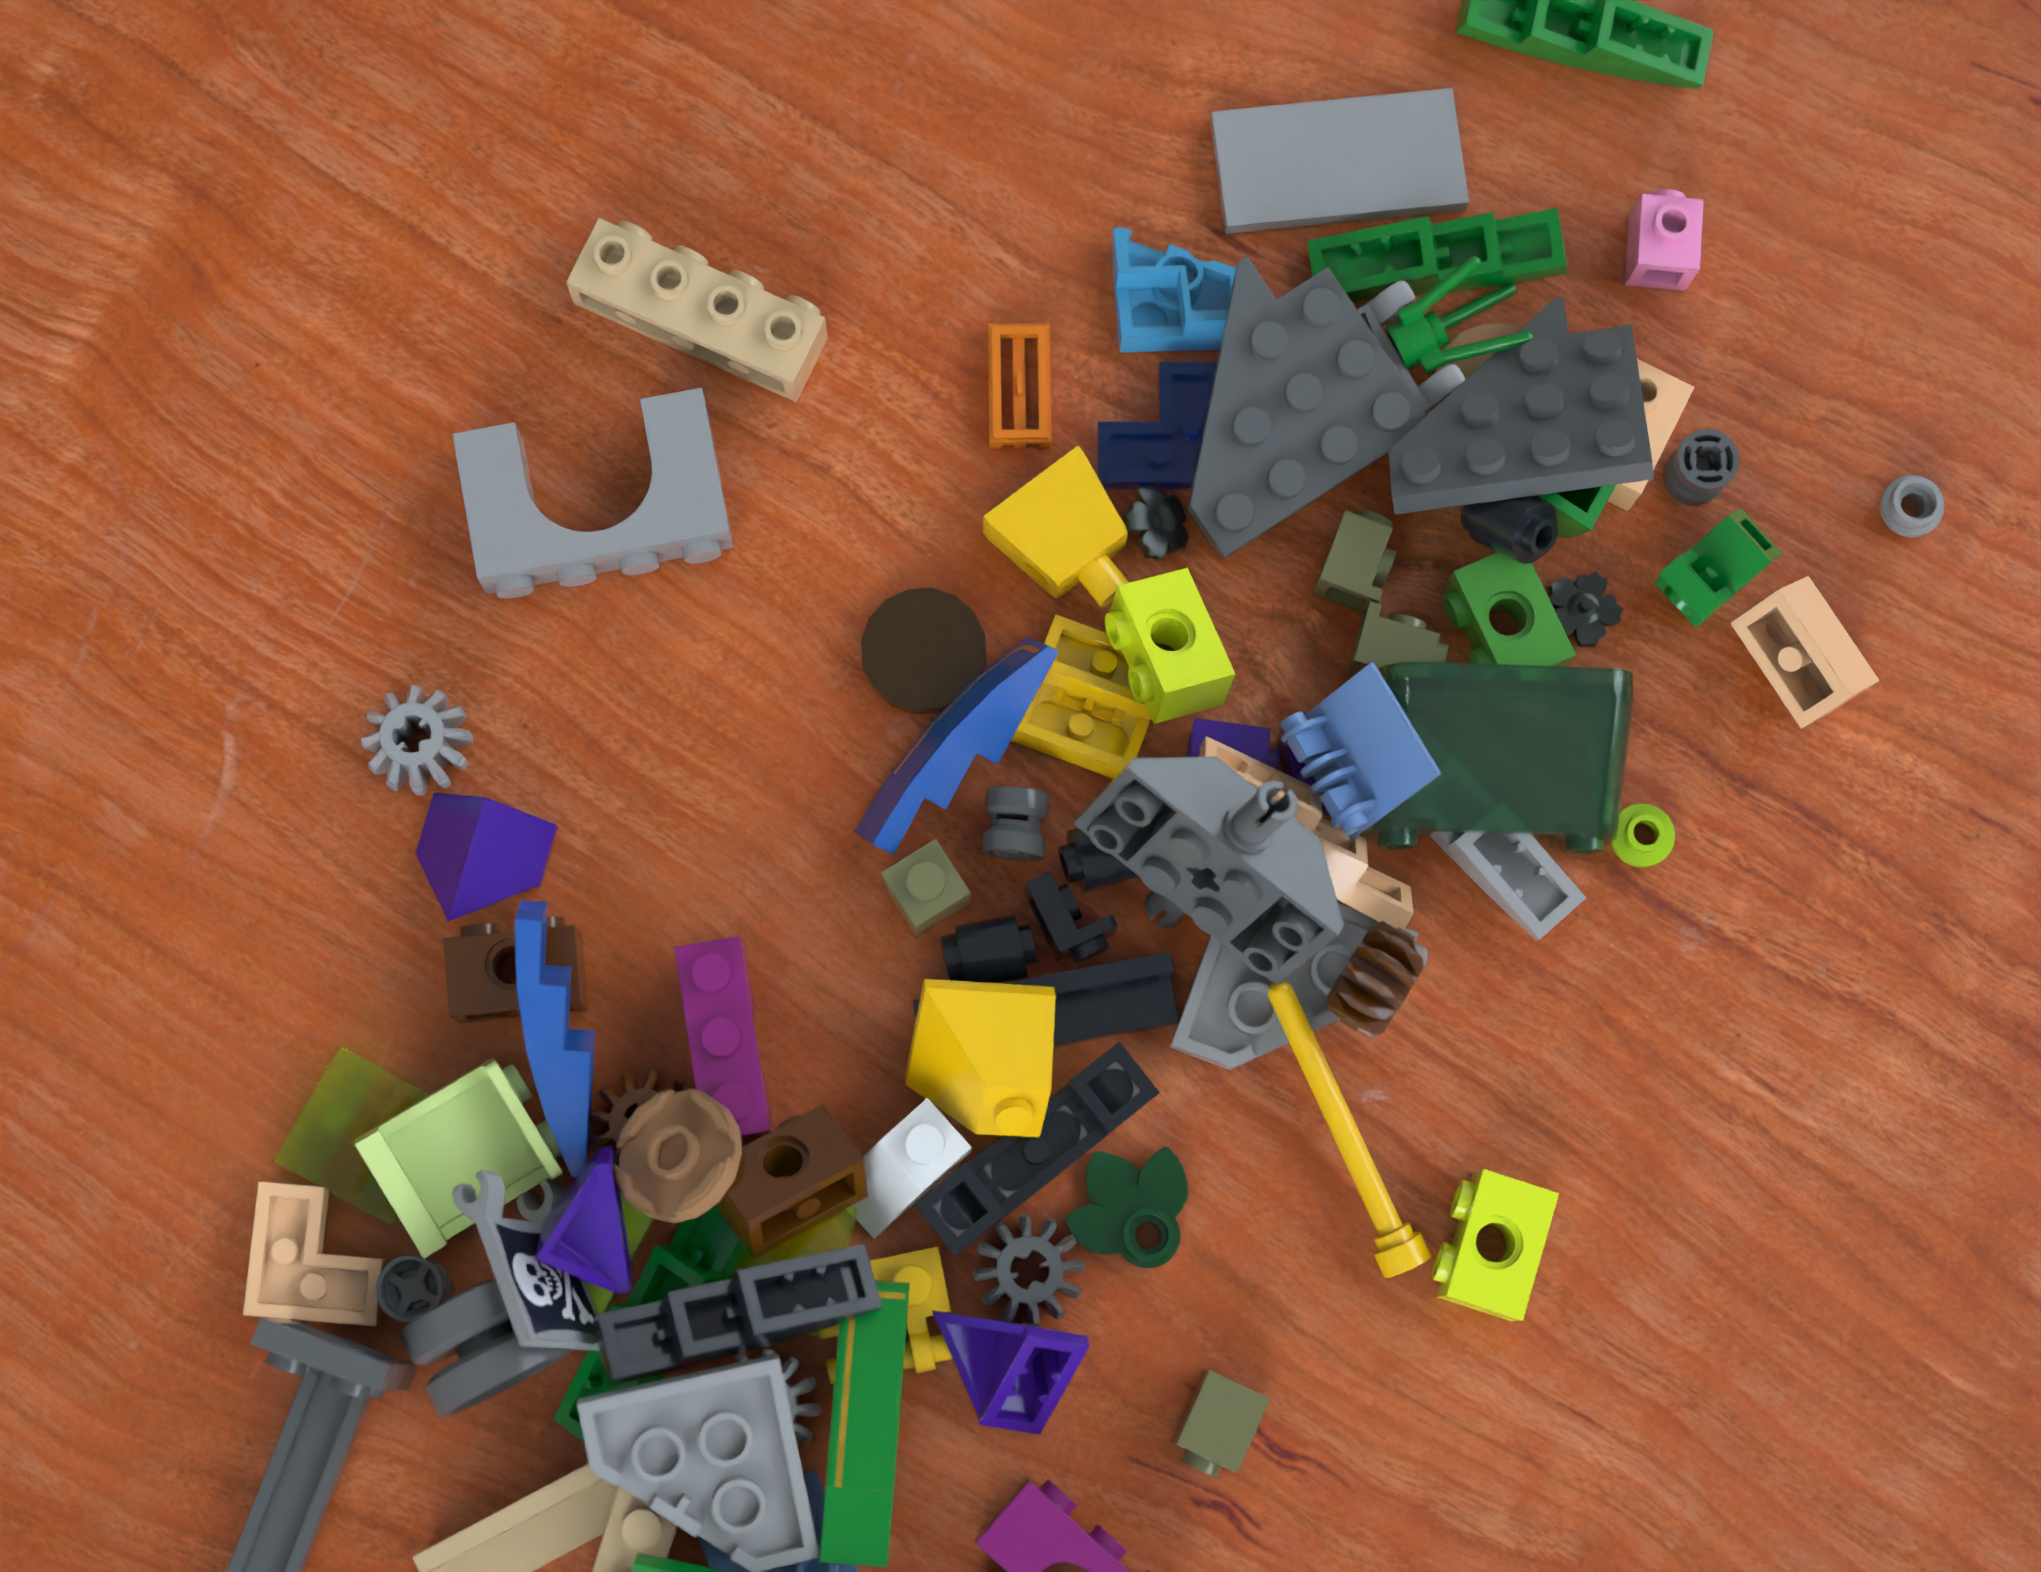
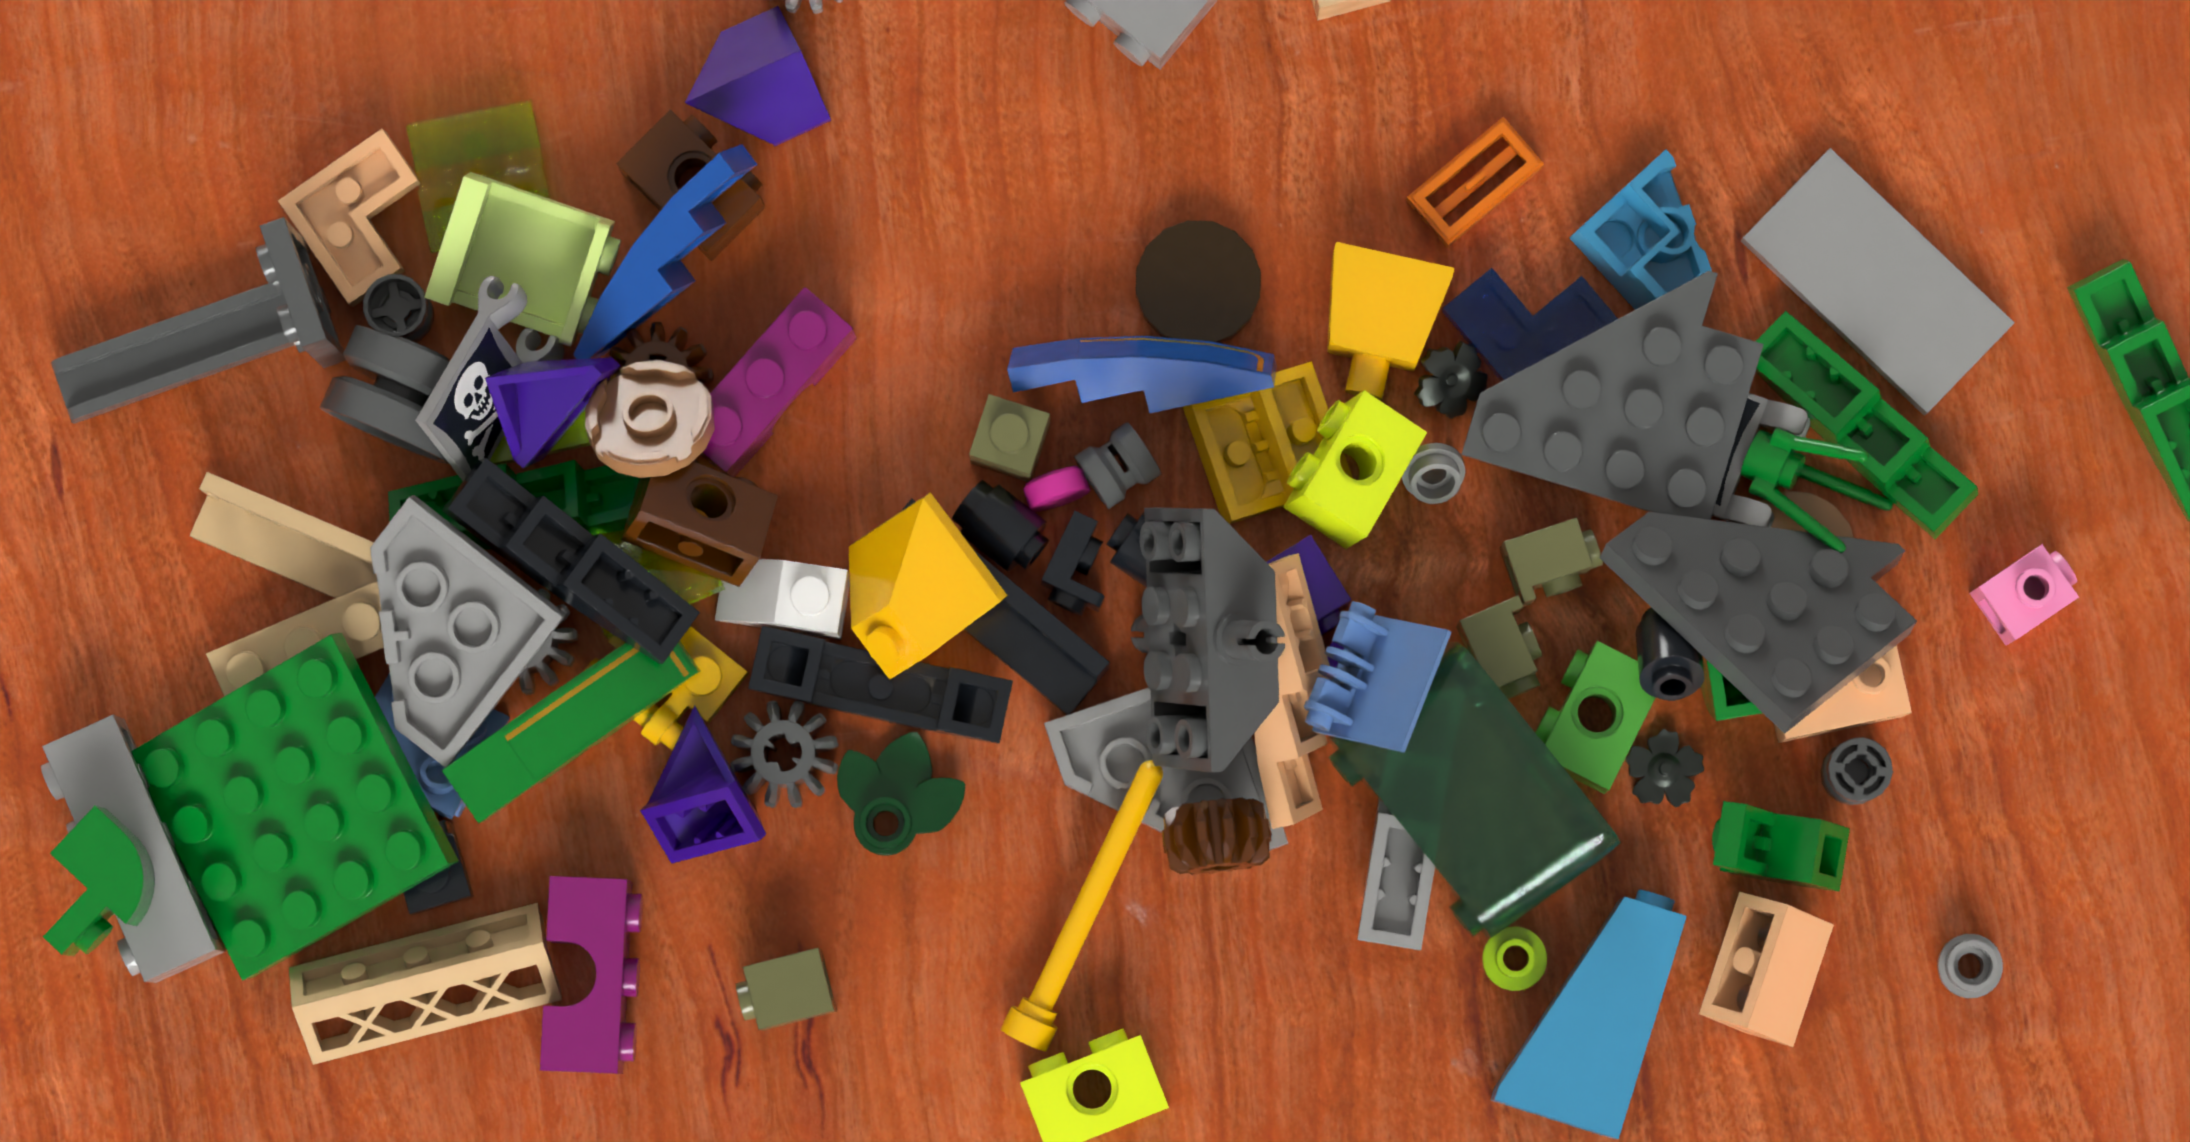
camera: 60 degrees right, 5 degrees up
(994, 885) = (1056, 488): none -> dark pink tile
(1222, 590) = (1438, 484): none -> light grey plate
(1745, 811) = (1596, 1030): none -> dark azure slope

